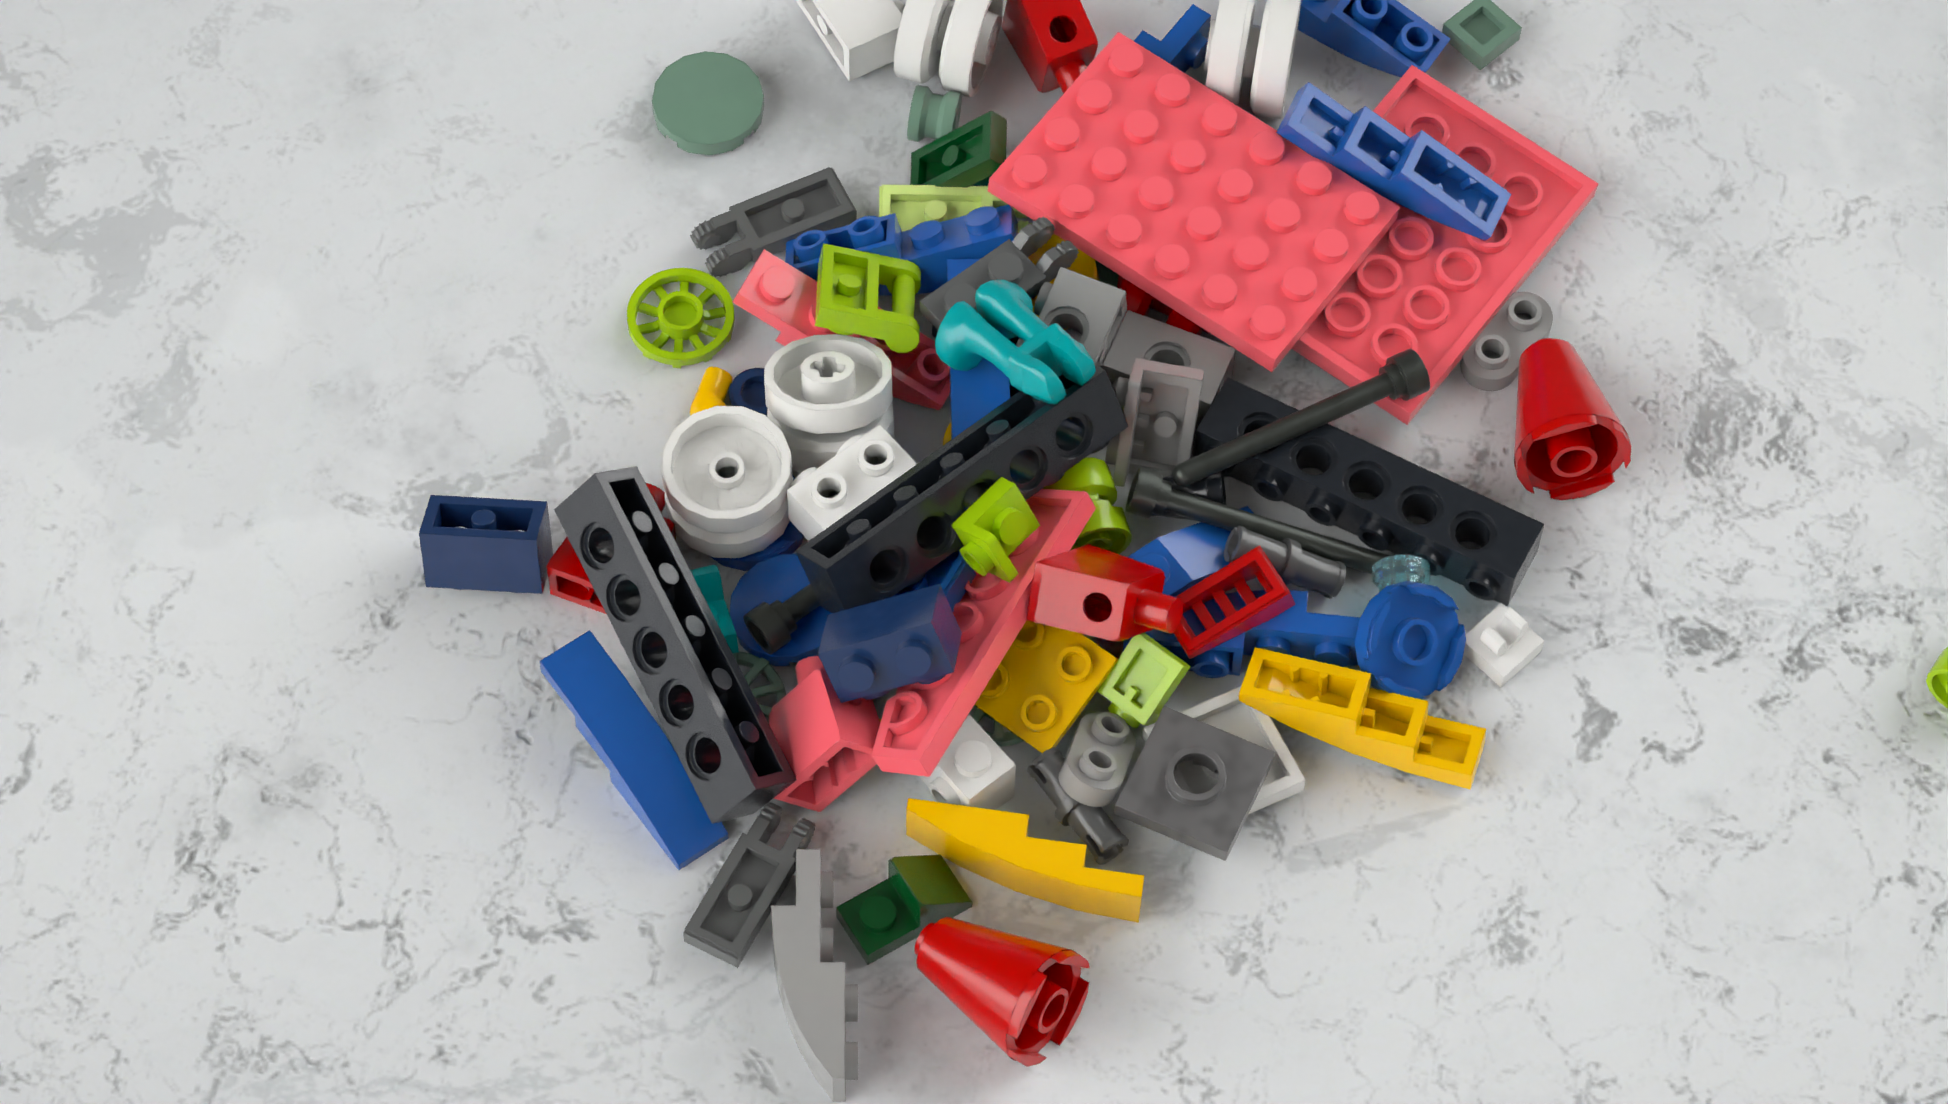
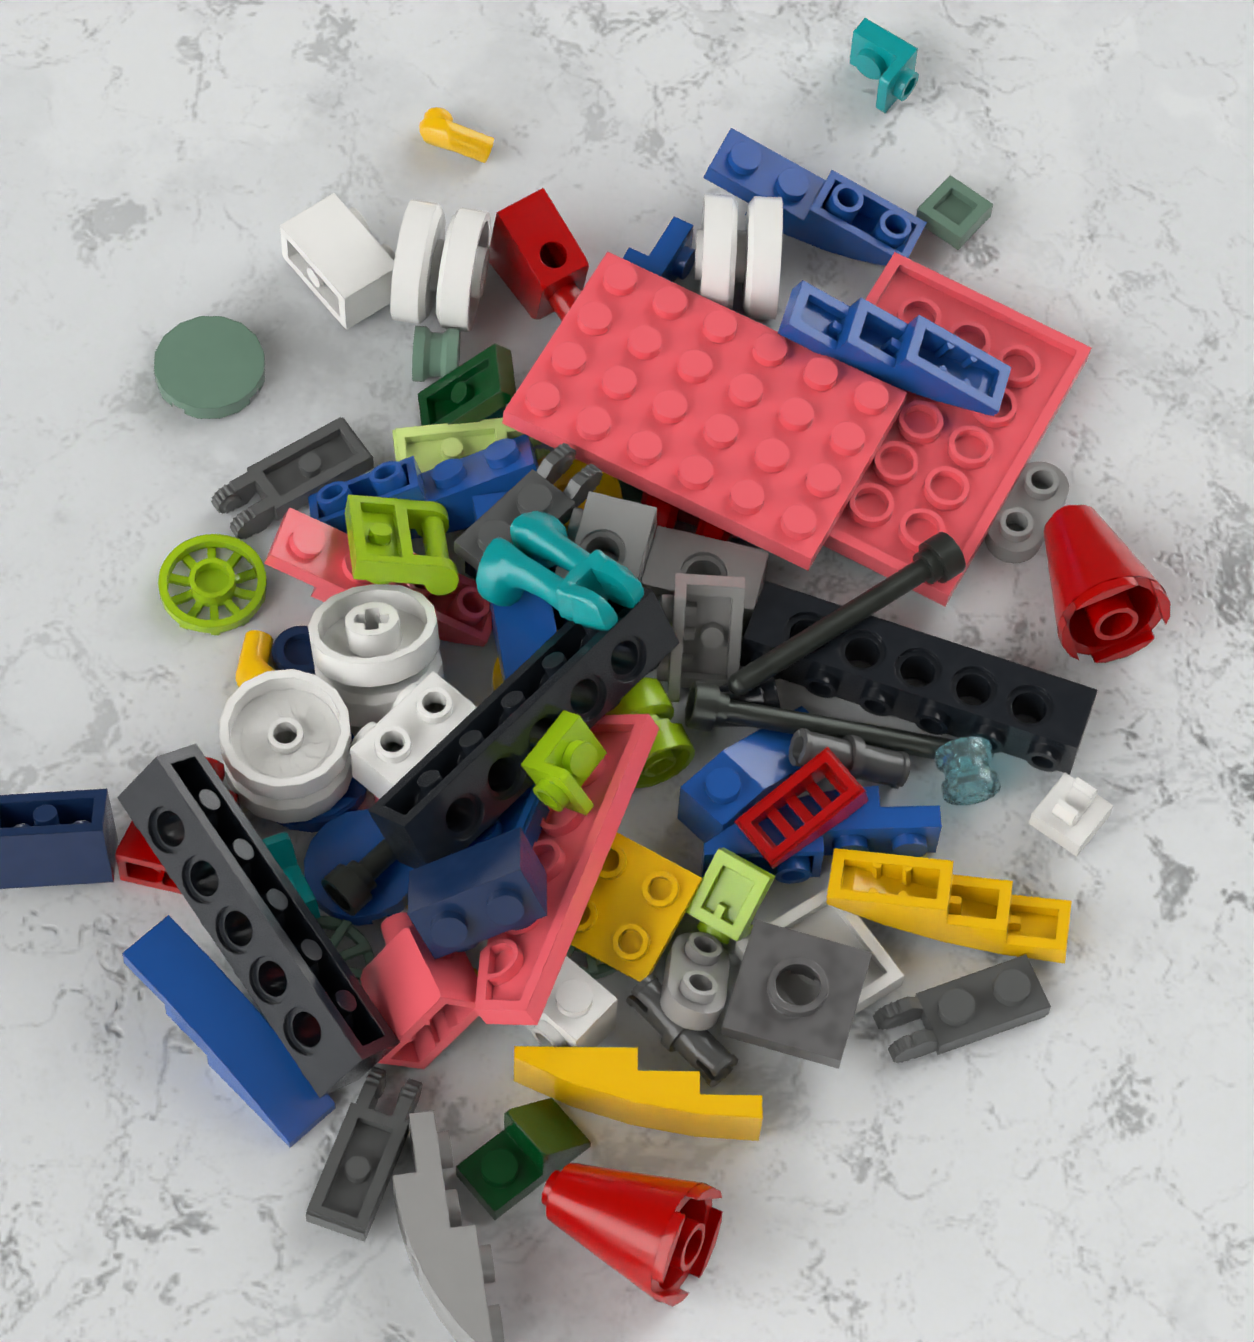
camera: 10 degrees left, 0 degrees up
(1101, 595) = (680, 816): red torso -> none
(1363, 822) = (966, 1009): none -> dark grey hinge
(1410, 639) = (985, 821): blue tile -> none

